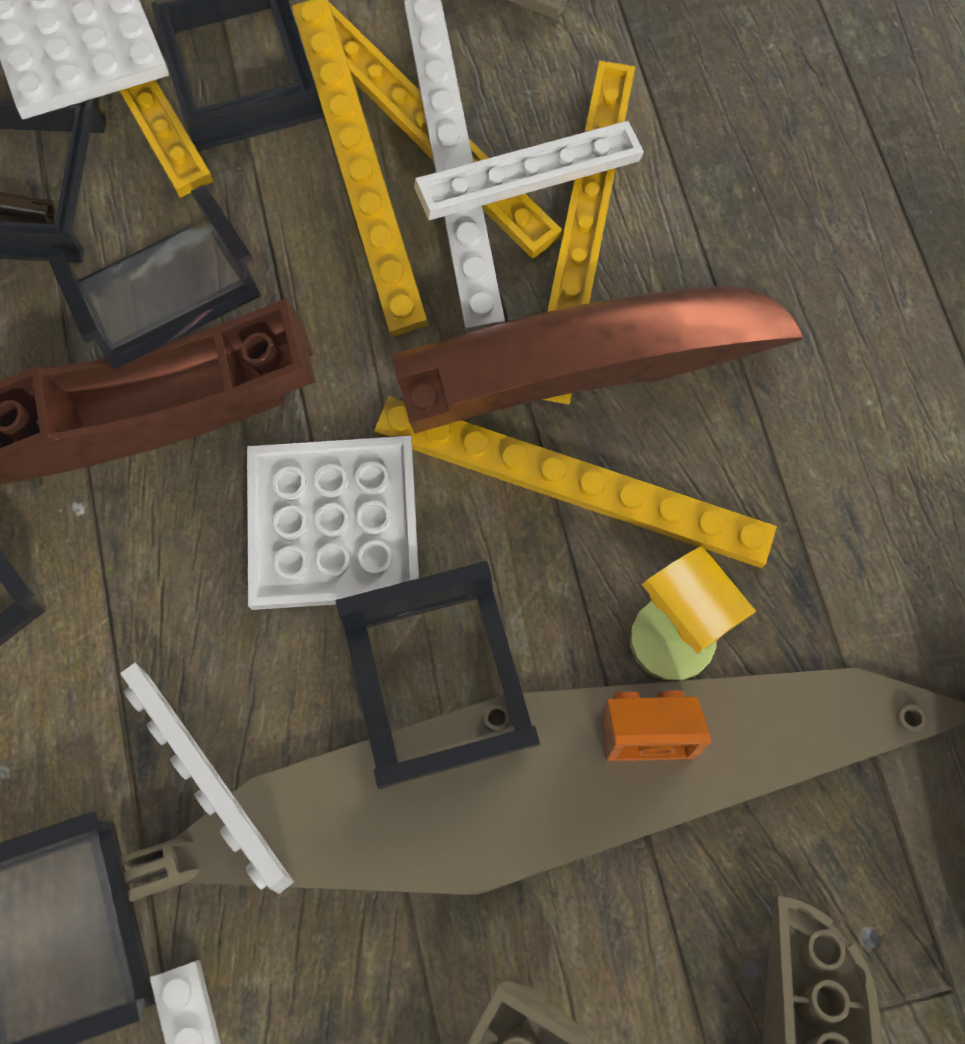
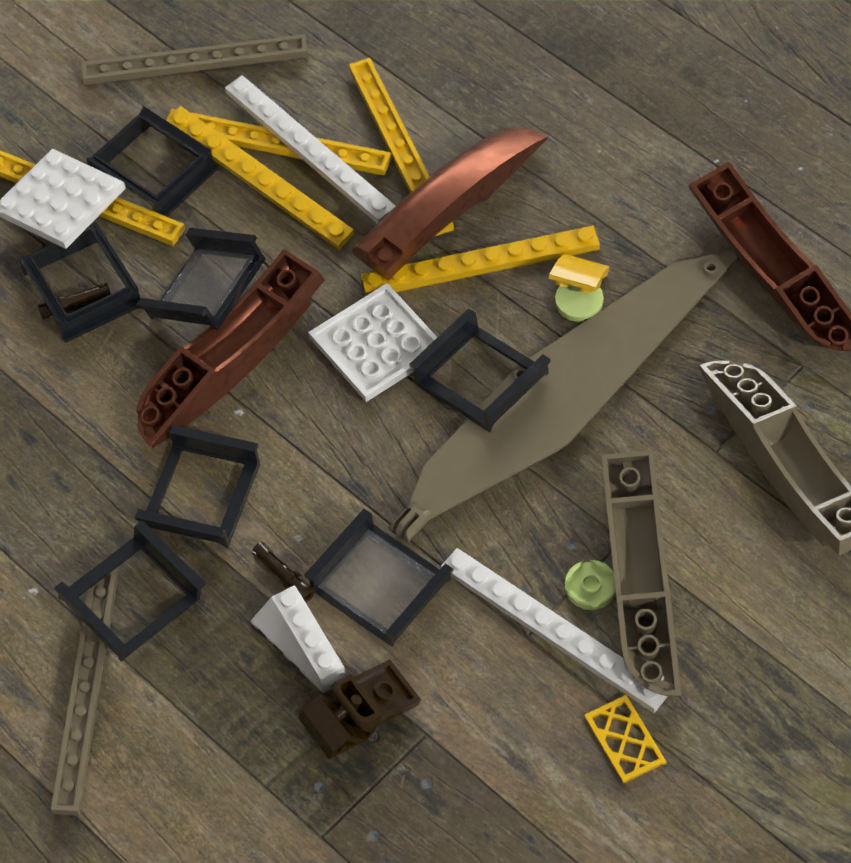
camera: 30 degrees left, 15 degrees down
(213, 793) = (404, 469): white plate -> none
(527, 170) = (356, 131): white plate -> none
(654, 727) = (597, 333): orange slope -> none

